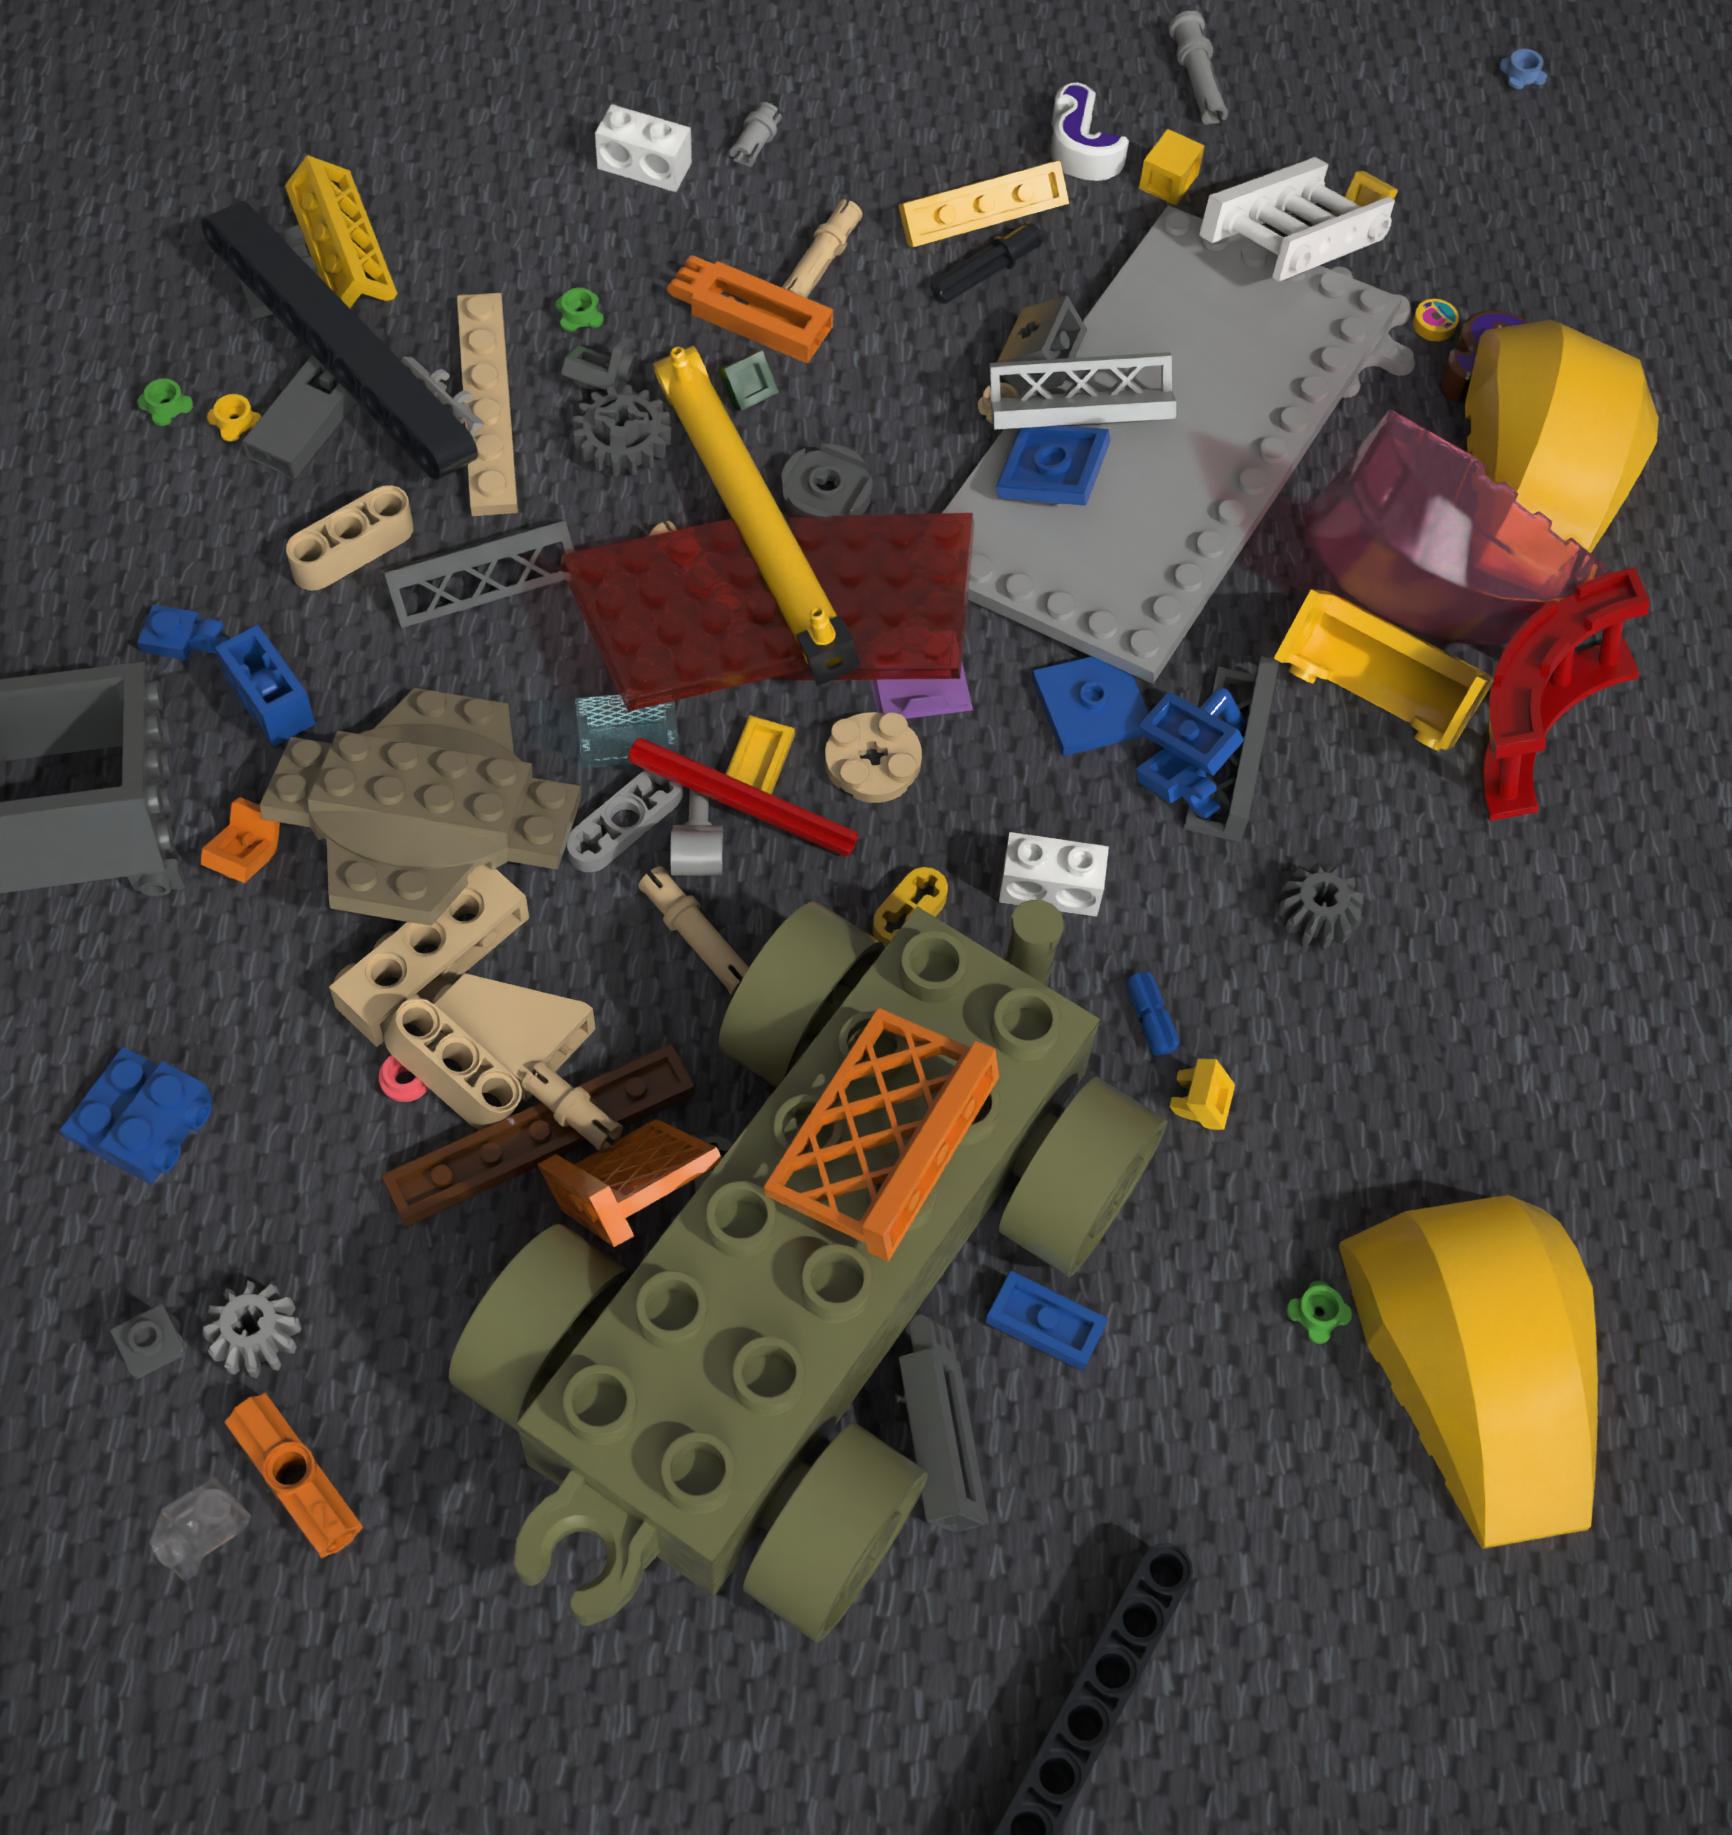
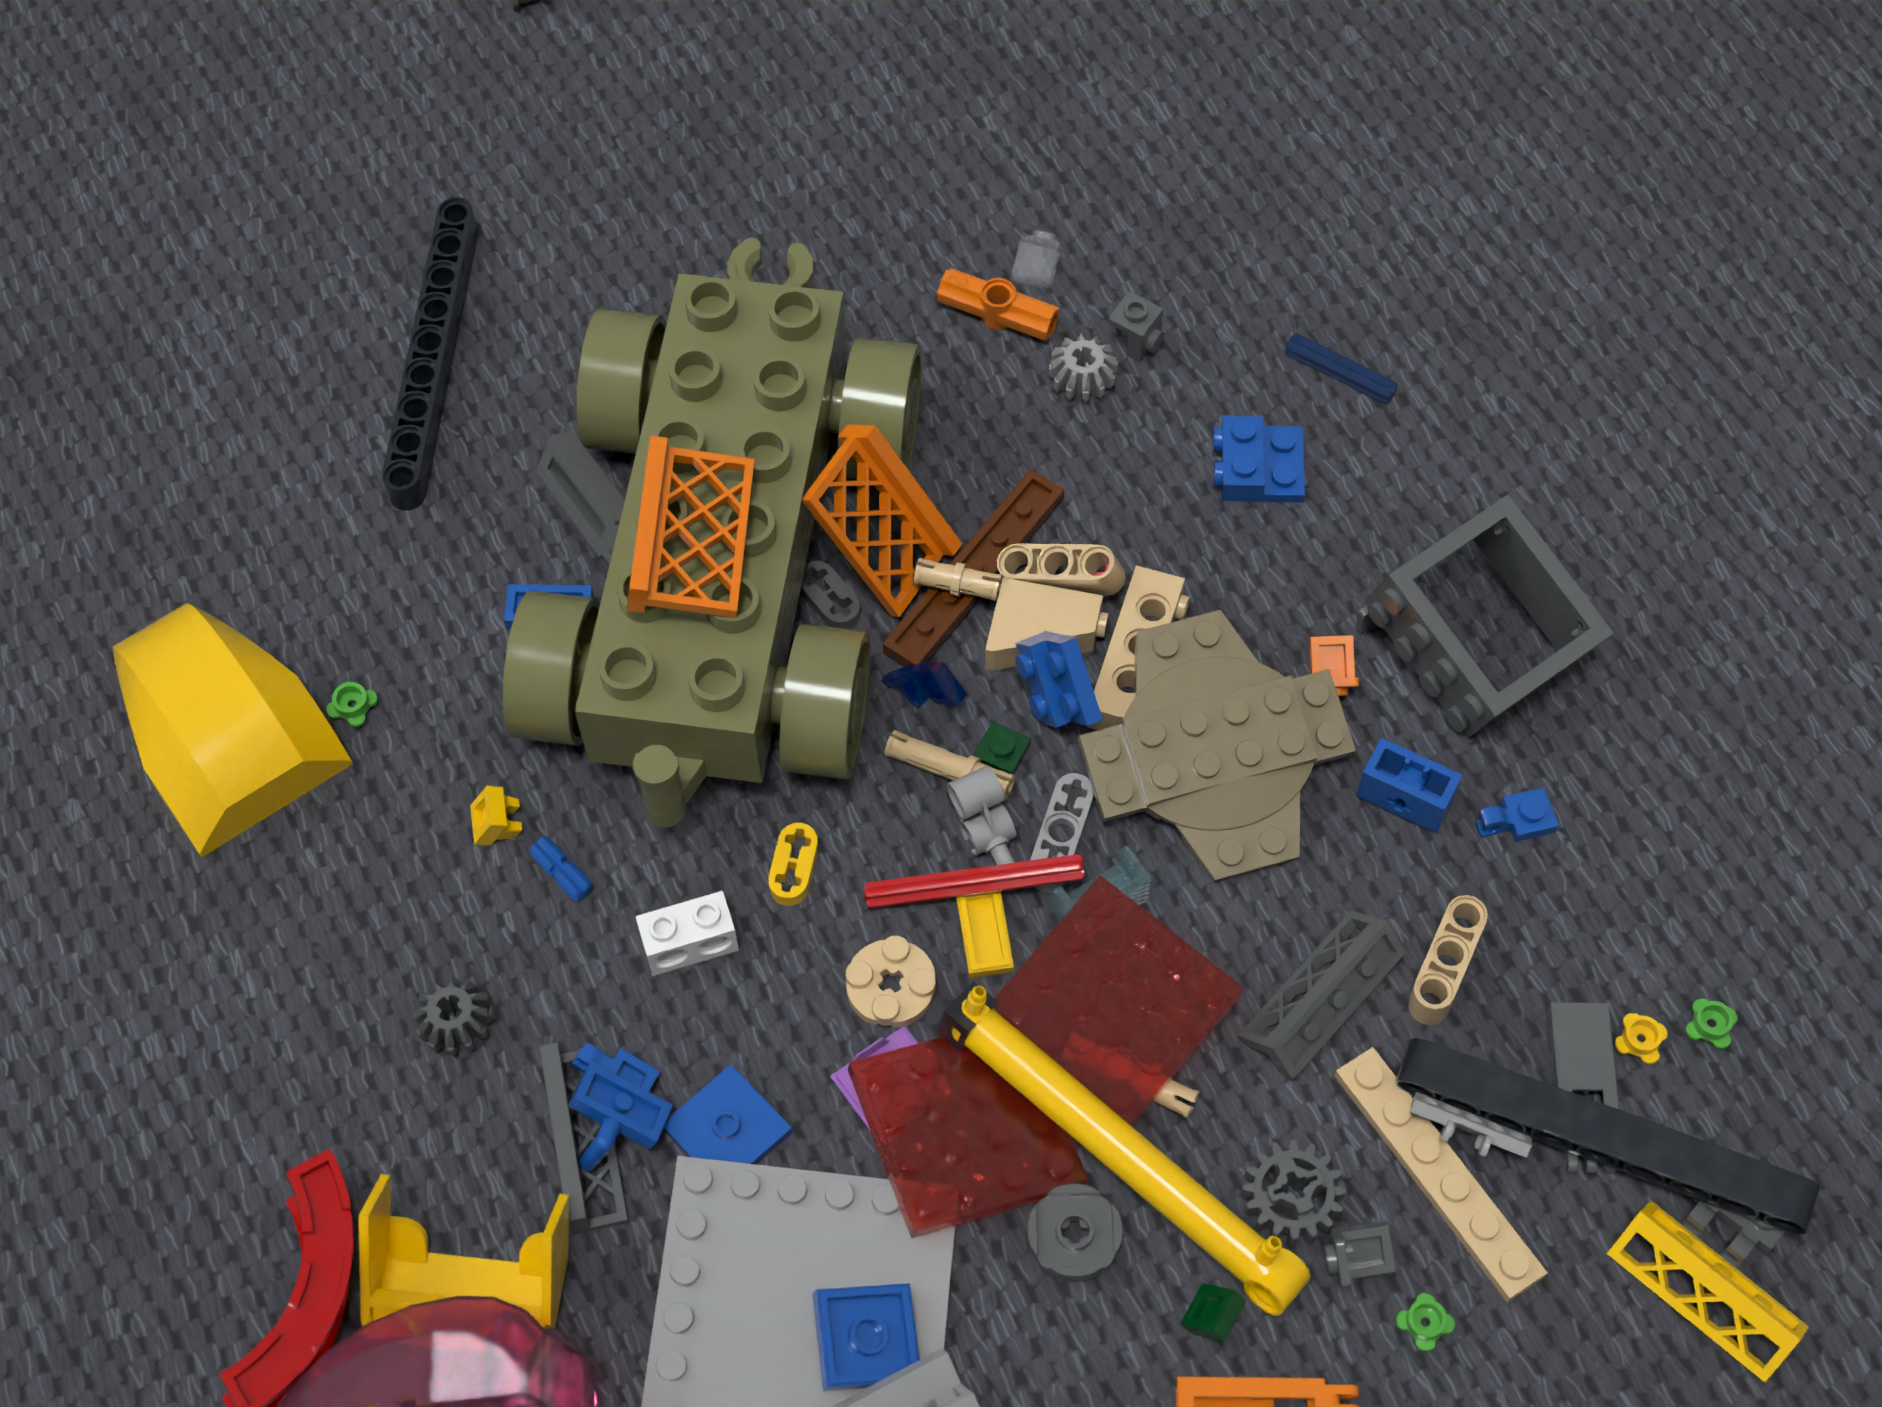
camera: 160 degrees right, 0 degrees up
(542, 926) = (1057, 680): none -> blue plate
(632, 928) = (1002, 748): none -> dark green plate
(685, 1035) = (926, 681): none -> clear blue slope

